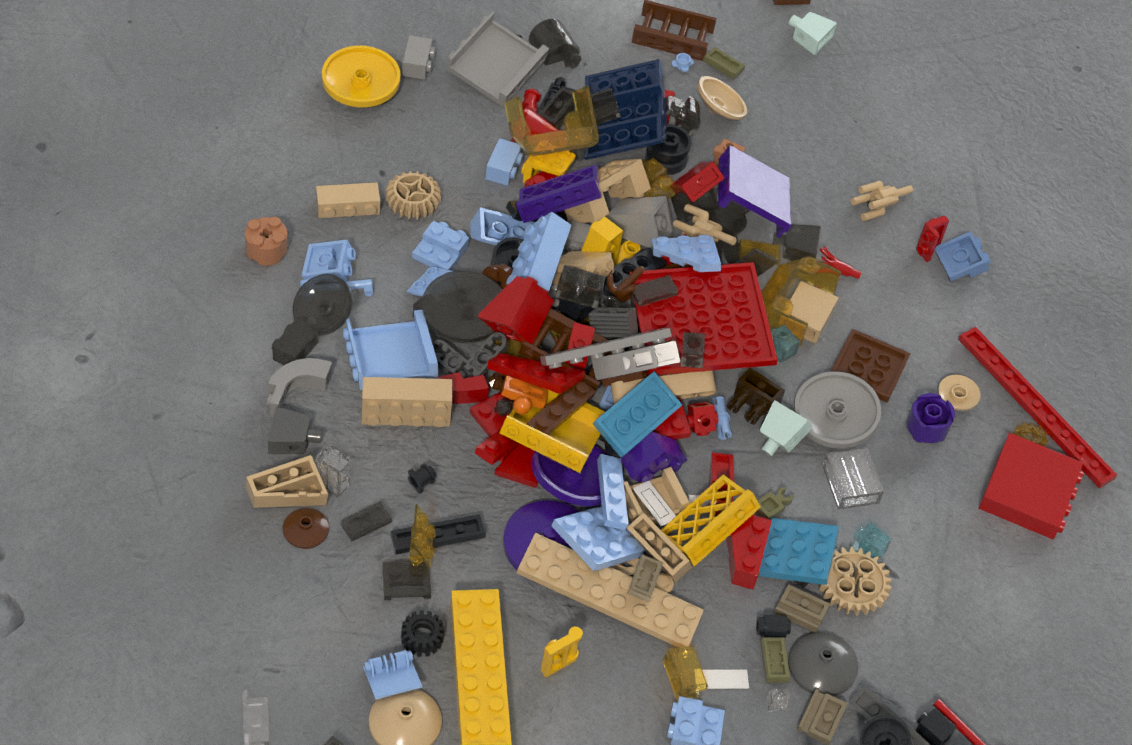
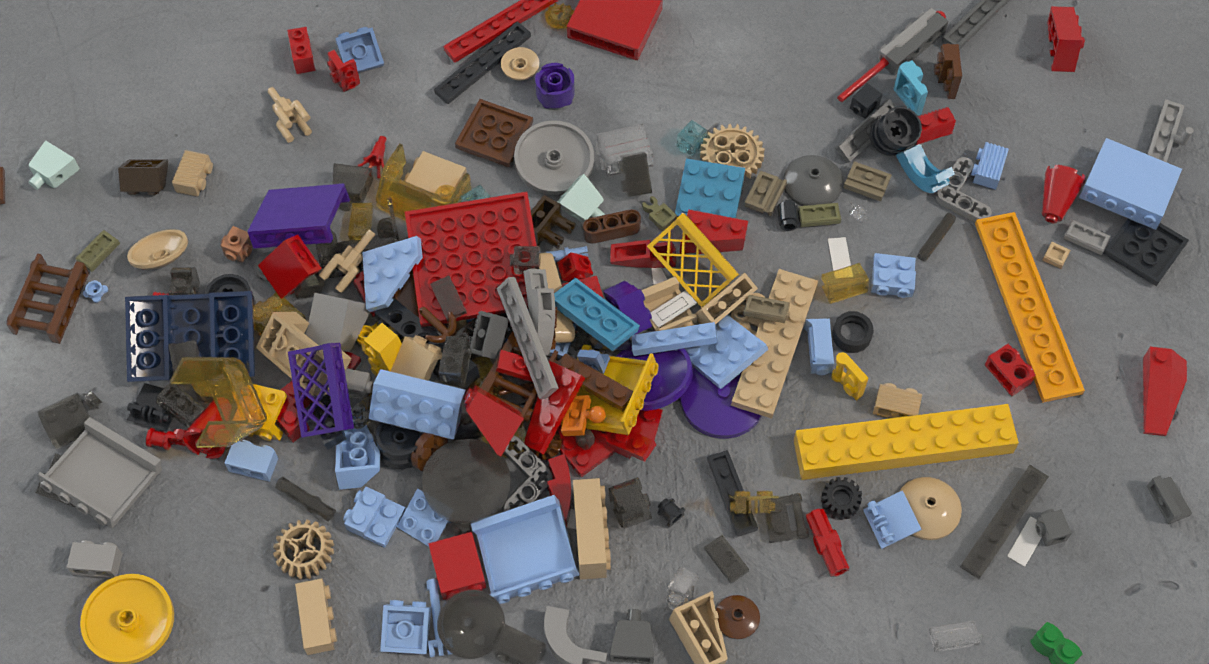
camera: 85 degrees left, 10 degrees up
(373, 612) = (827, 542): none -> red piece
(383, 301) = (457, 565): none -> red panel
(430, 436) = (629, 503): none -> clear smoke brick
(458, 203) = (311, 502): none -> clear smoke pin
(530, 703) = (896, 402): none -> tan brick
(586, 416) = (594, 359): none -> medium blue bracket
(606, 637) = (820, 345): none -> light blue window
(629, 658) = (857, 318): none -> black tyre
(750, 446) = (605, 233): none -> reddish brown beam
(805, 92) = (143, 176): none -> dark brown slope
(809, 127) = (192, 173): none -> tan brick
(817, 478) = (635, 174): none -> clear smoke brick
(959, 361) = (481, 63): none -> black plate
(960, 210) = (301, 50): none -> red brick

